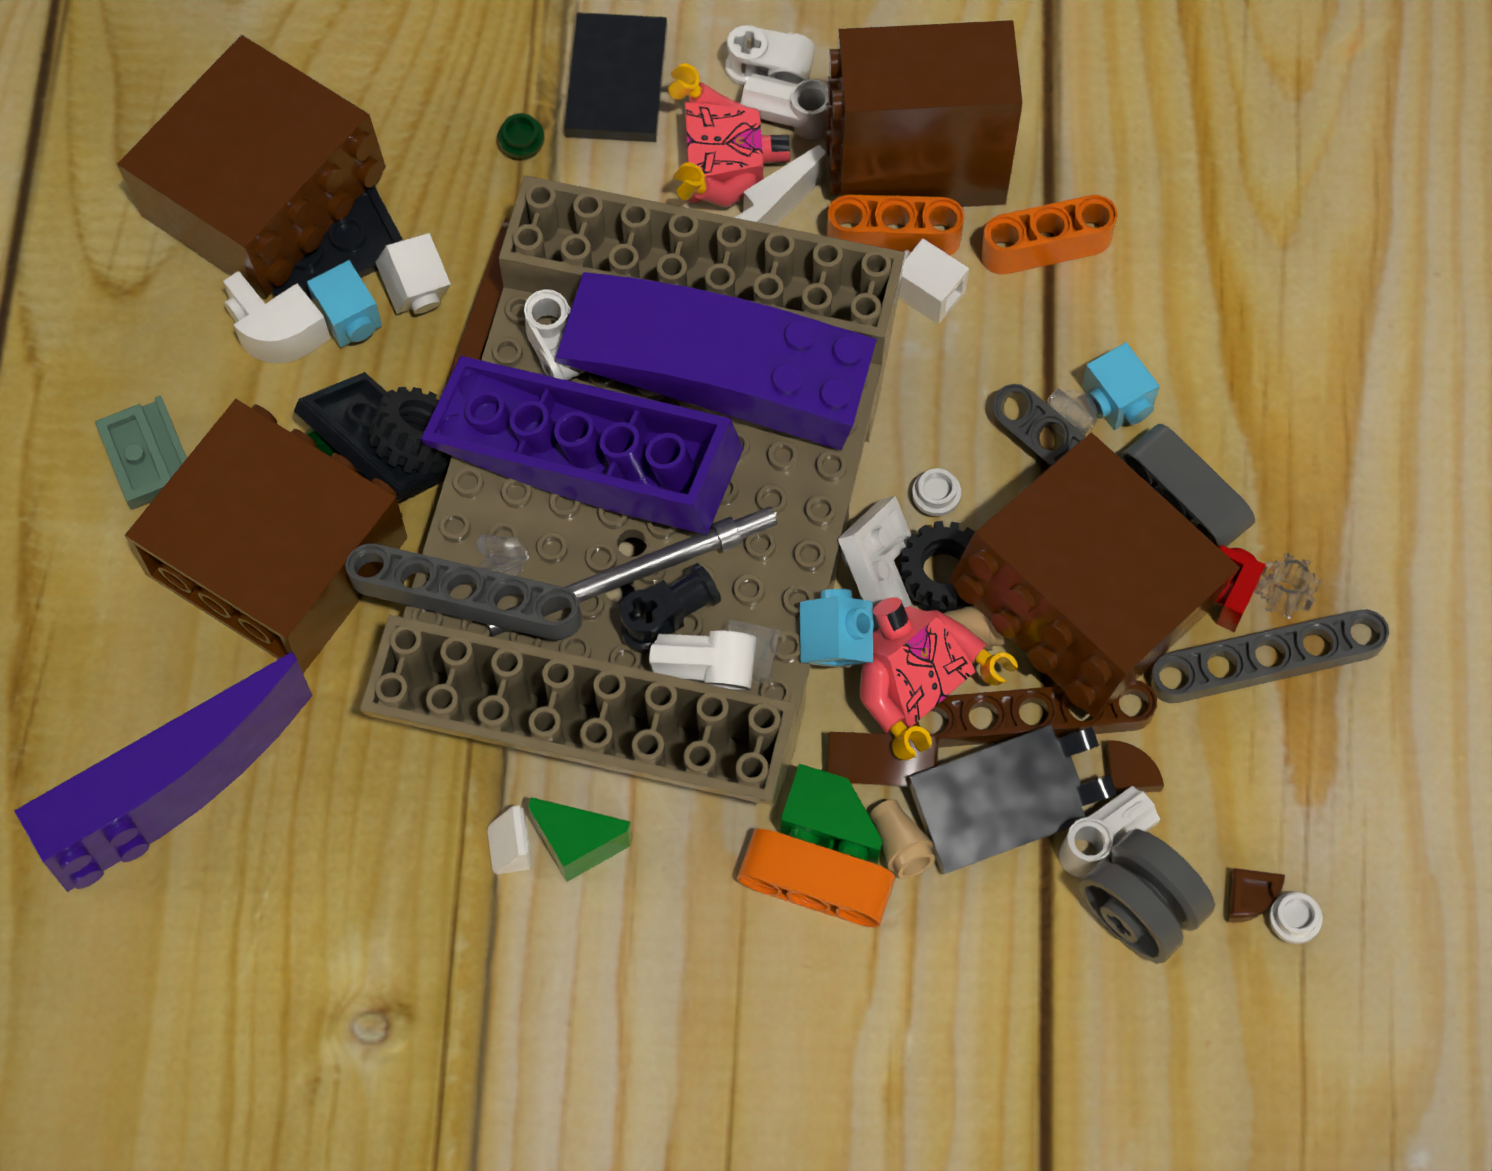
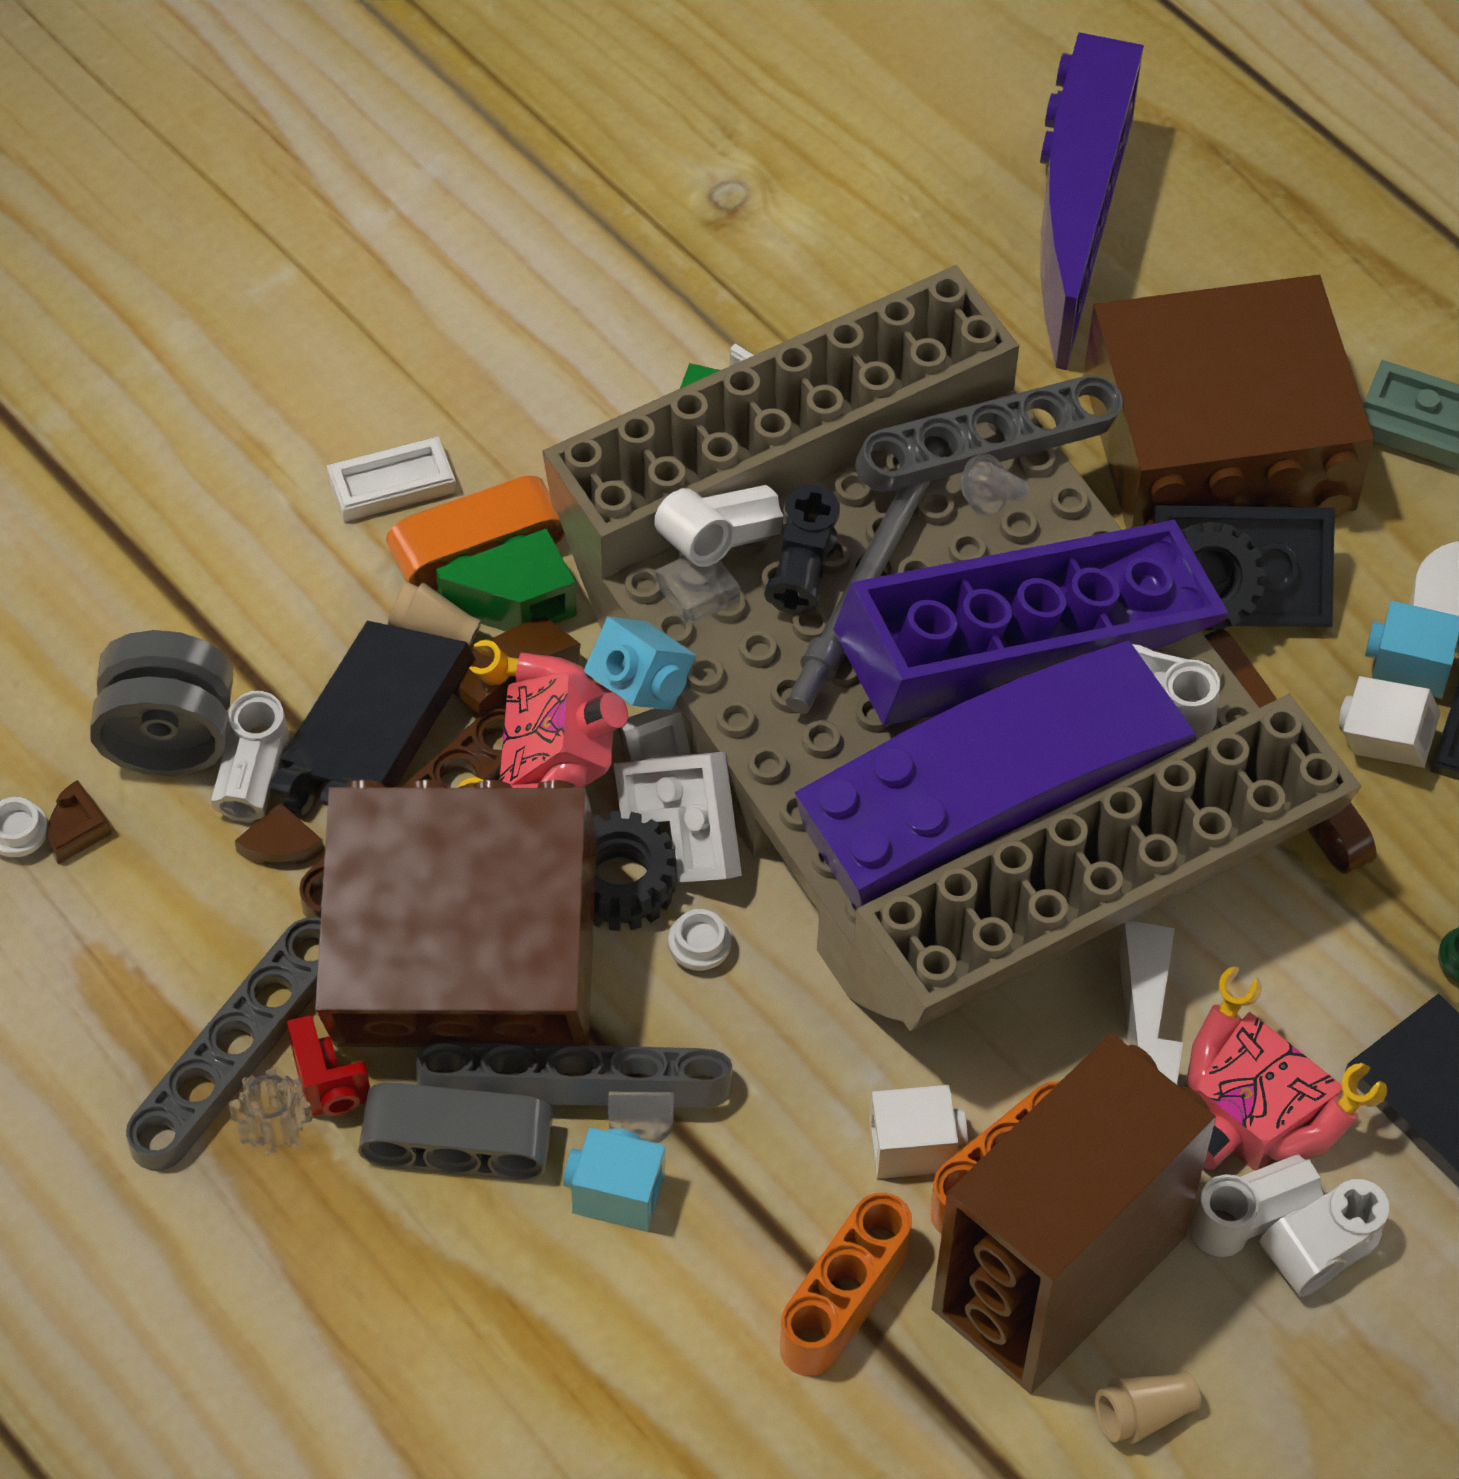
camera: 135 degrees right, 10 degrees down
(826, 983) = (391, 479): none -> white tile

